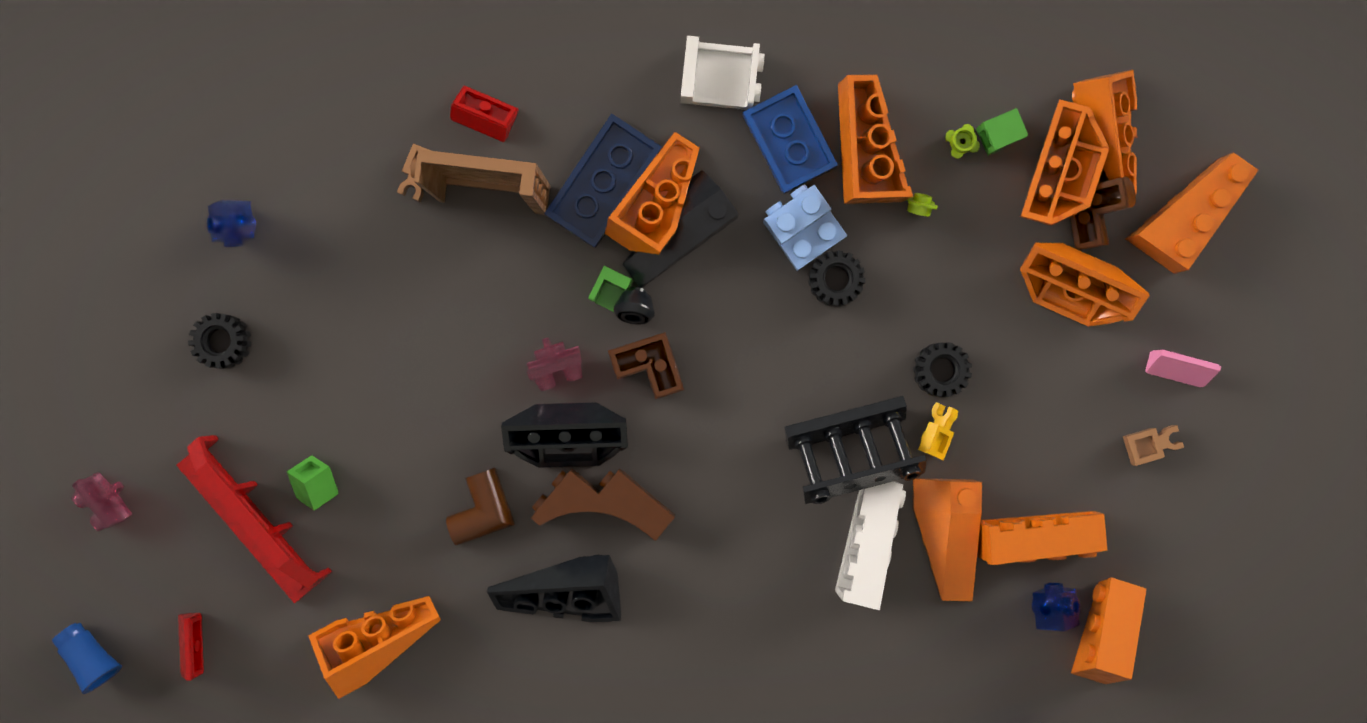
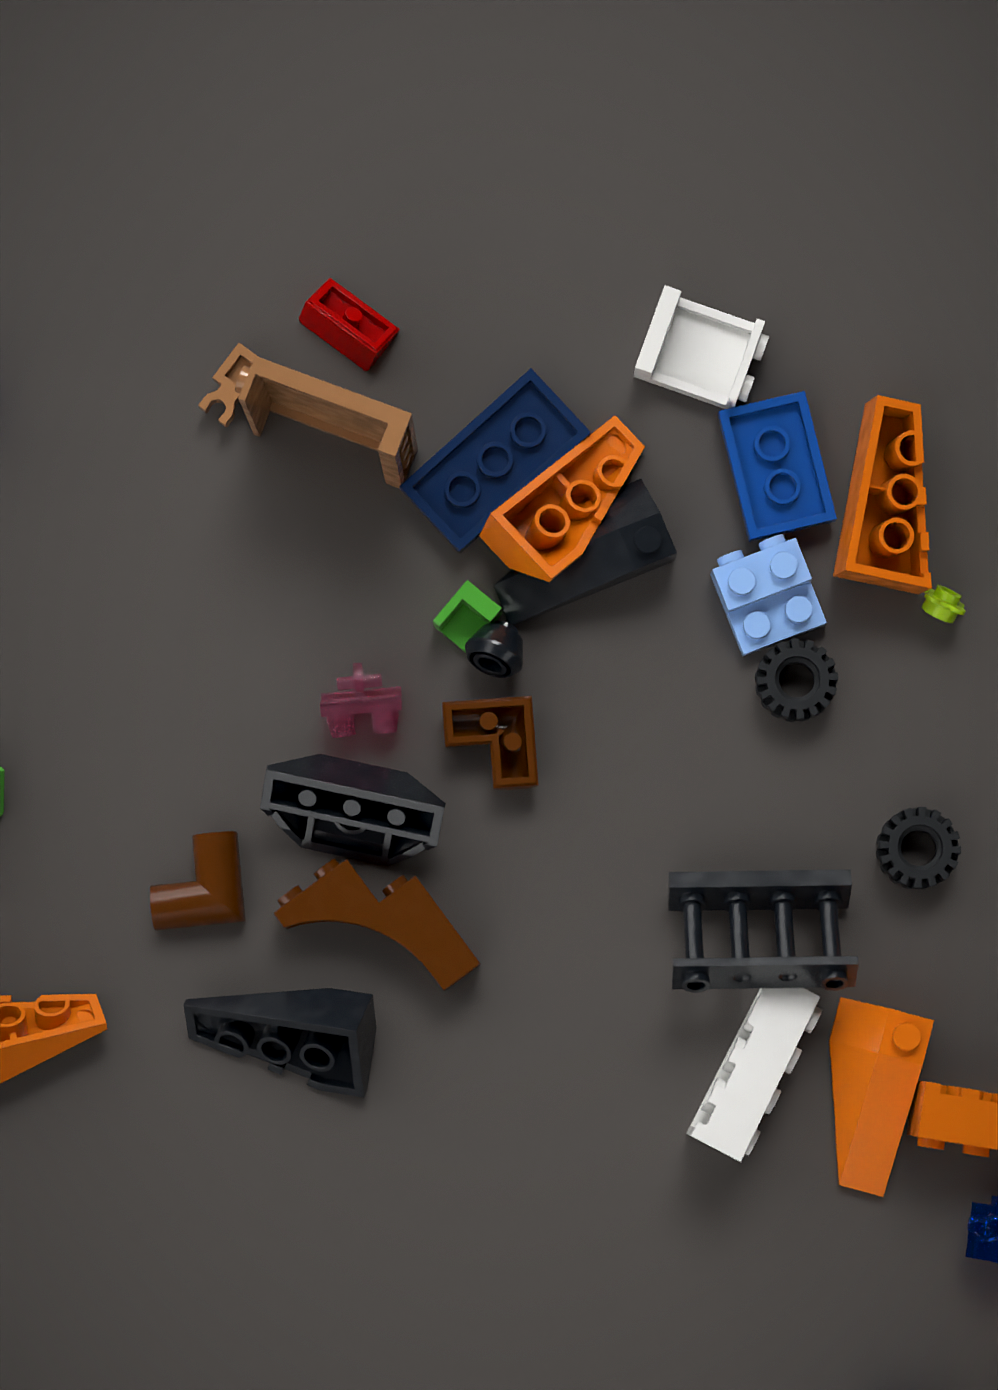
camera: 20 degrees right, 5 degrees down
(938, 435) = (888, 940): yellow plate -> none

